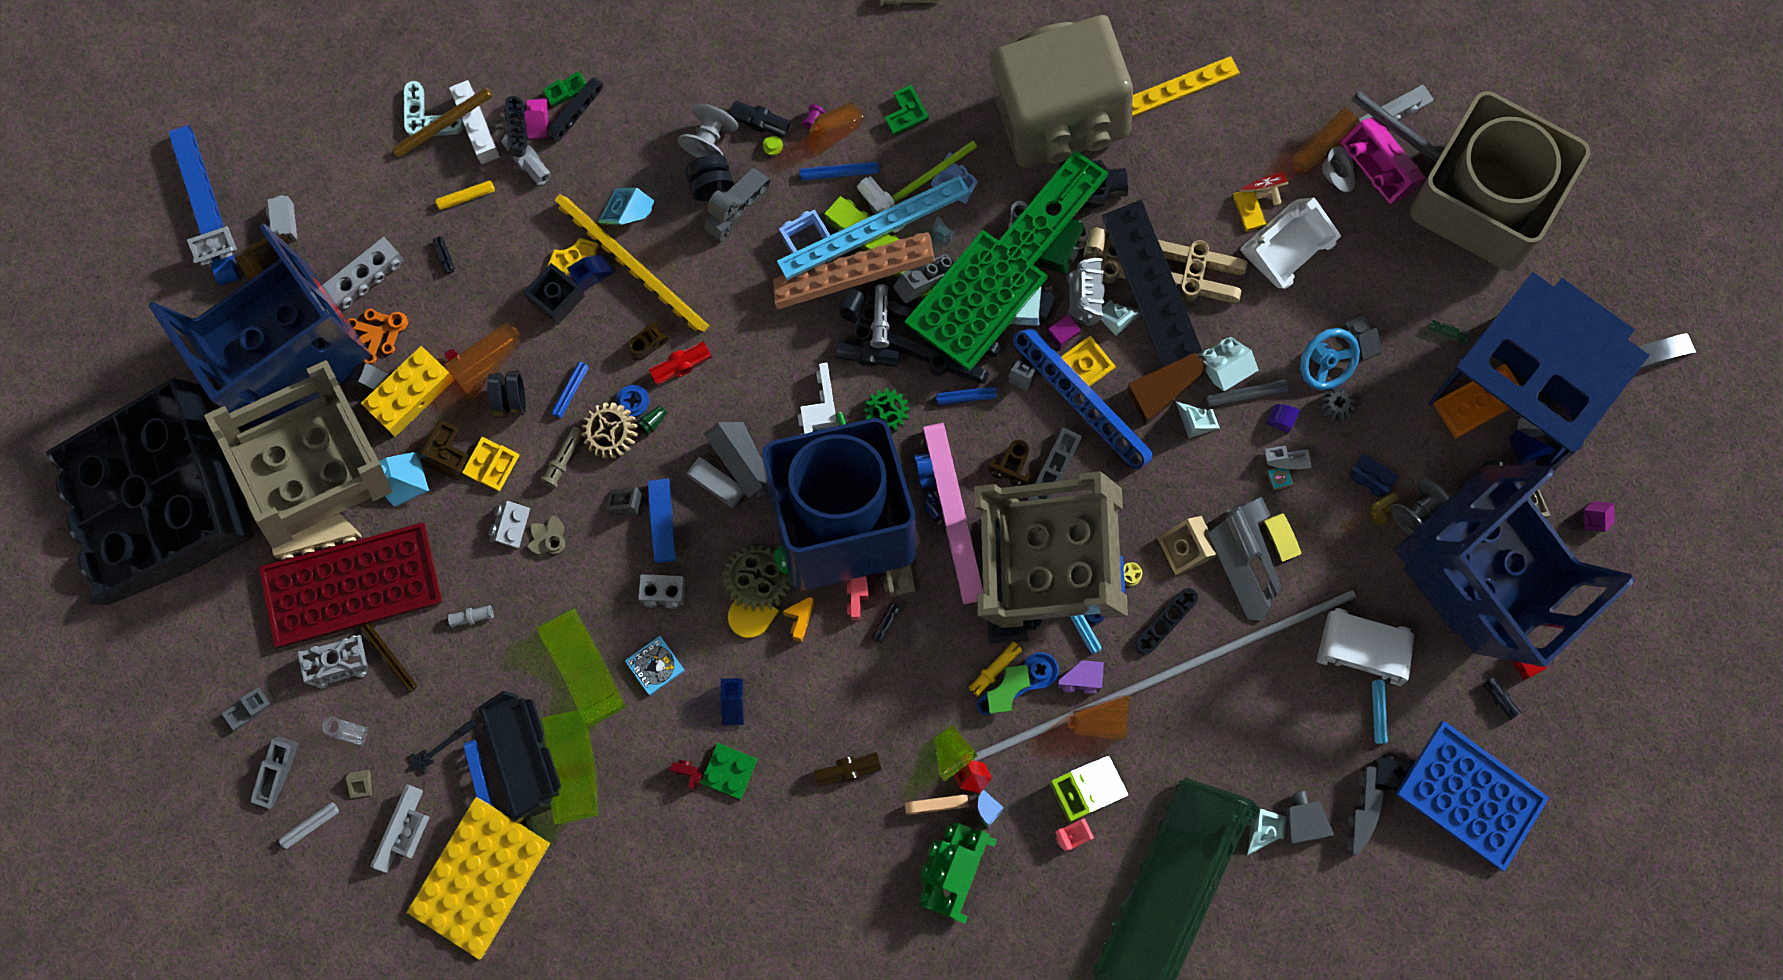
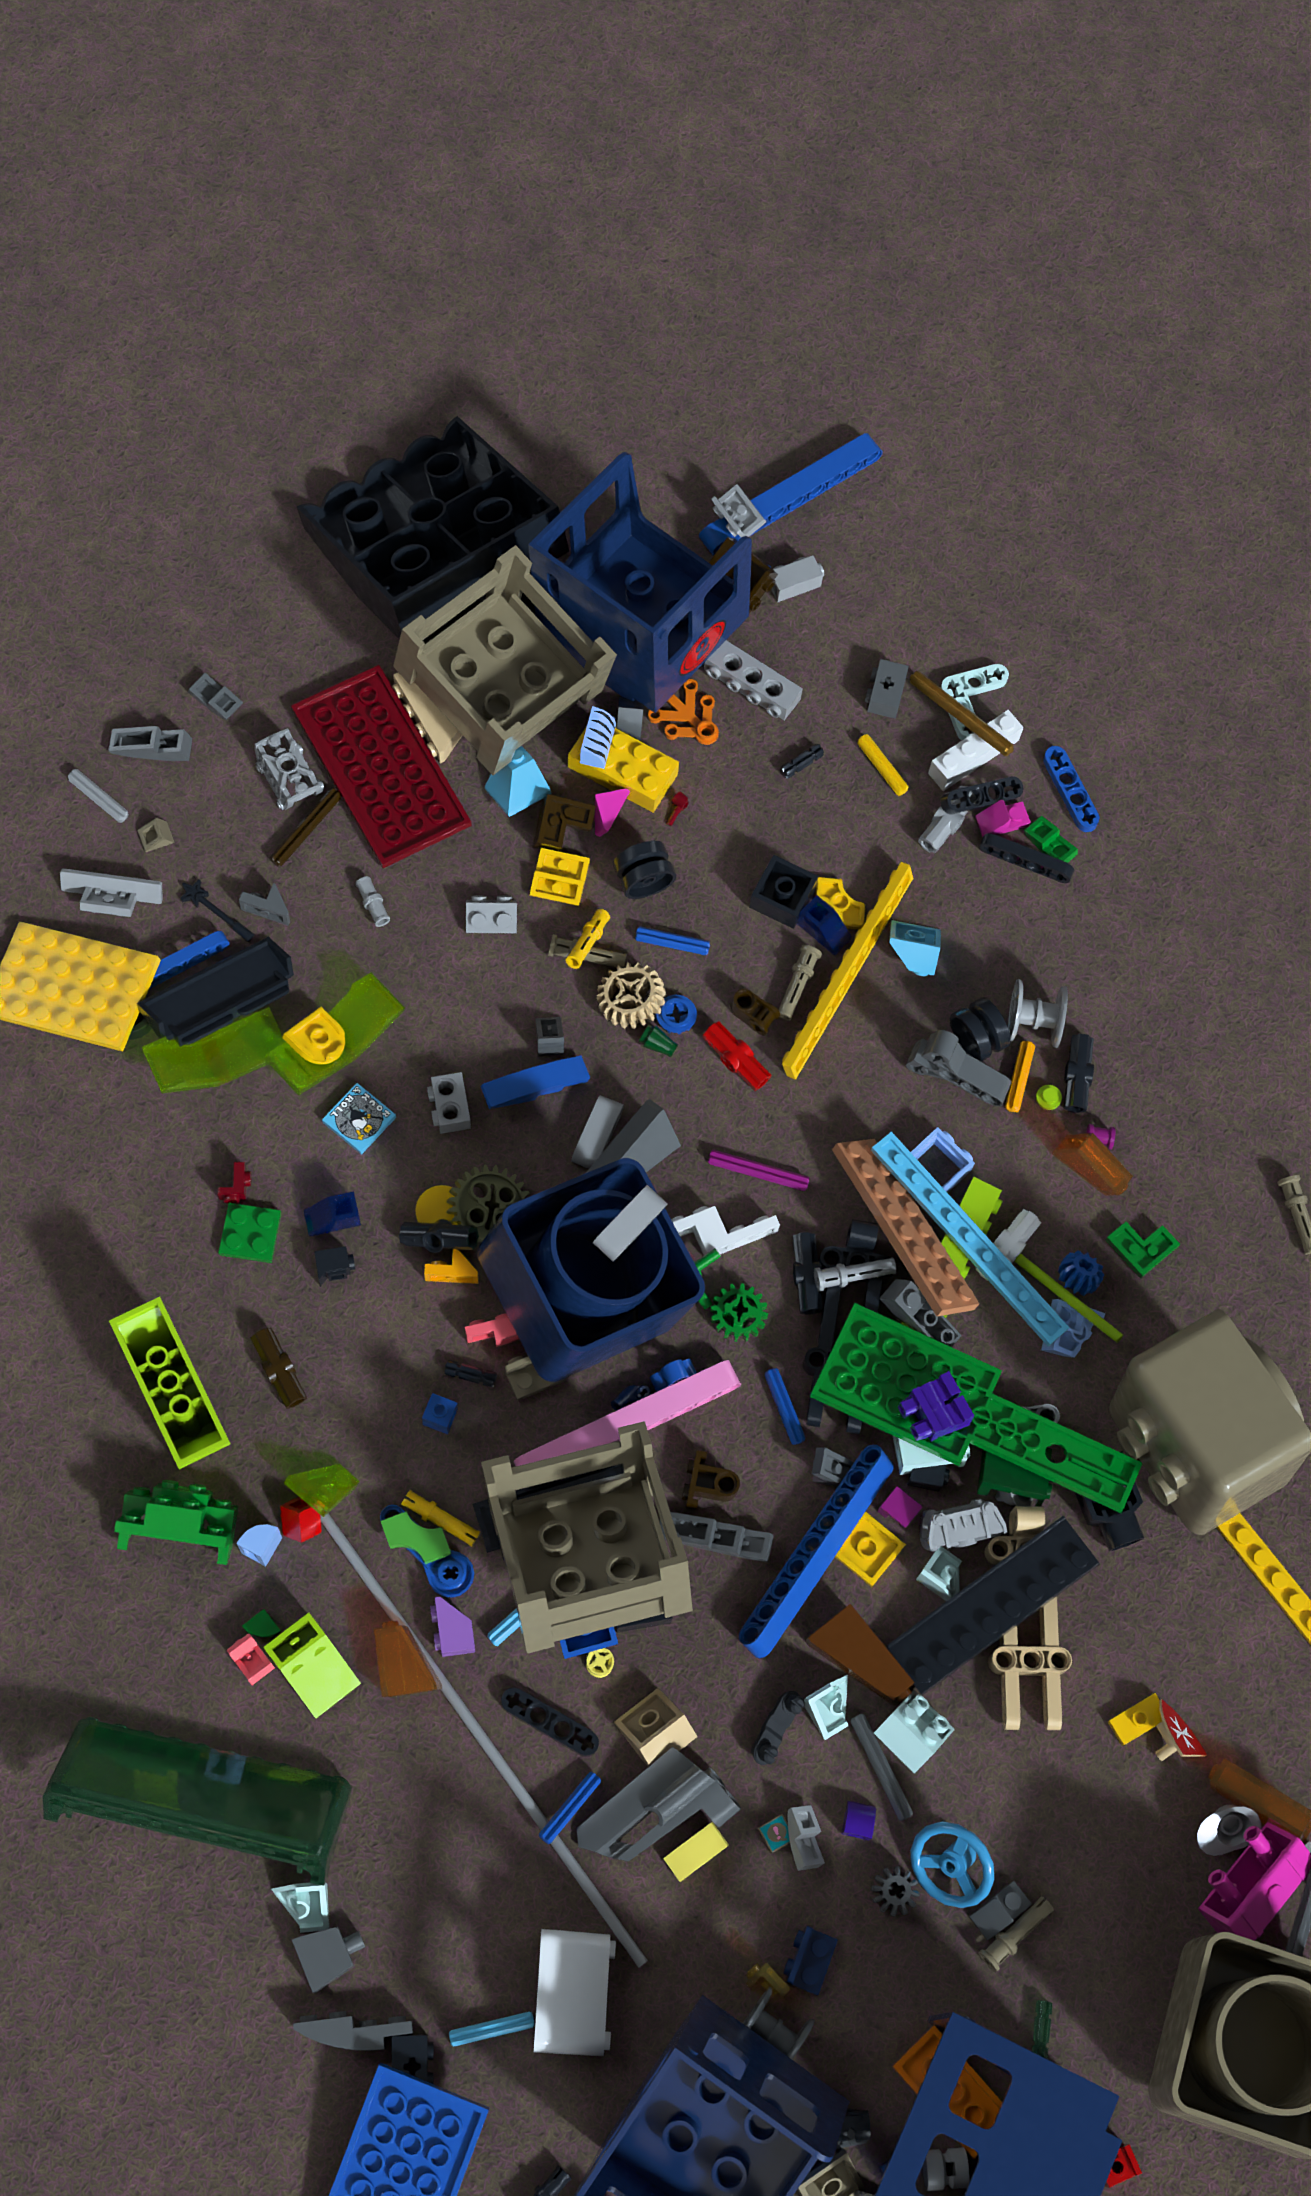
camera: 65 degrees right, 5 degrees down
(346, 731) = (211, 804): clear piece -> none
(384, 402) = (597, 738): none -> light blue brick
(401, 174) = (891, 676): none -> dark grey brick
(445, 411) = (607, 809): none -> dark pink slope
(455, 697) = (270, 908): none -> dark grey slope
(483, 358) = (683, 835): clear orange slope -> none
(526, 66) = (1067, 790): none -> blue beam
(546, 535) = (488, 958): dark tan plate -> none
(547, 448) = (598, 921): none -> yellow pin
(580, 682) = (317, 1038): none -> yellow tile
(624, 297) = (804, 970): none -> dark tan pin
(750, 161) = (1020, 1076): none -> light orange axle
(772, 620) = (438, 1235): none -> black piece
(773, 709) = (334, 1264): none -> black window
(776, 370) = (758, 1170): none -> magenta axle
(821, 456) = (630, 1223): none -> light grey beam
(839, 170) = (1039, 1184): blue axle -> none
(855, 848) = (169, 1382): none -> lime piece
(914, 651) = (440, 1413): none -> blue brick
(916, 158) = (1080, 1273): none -> blue gear
(936, 804) = (256, 1483): light nougat beam -> none
(941, 231) = (994, 1328): clear light blue slope -> none
(1003, 284) = (936, 1408): none -> dark purple hips
(1048, 822) = (261, 1625): none -> green tile
(1198, 455) = (776, 1723): none -> black piece
(1233, 620) = (569, 1807): none -> blue axle
(1290, 241) = (1106, 1781): white windscreen -> none
(1387, 338) = (1007, 1942): none -> dark tan pin

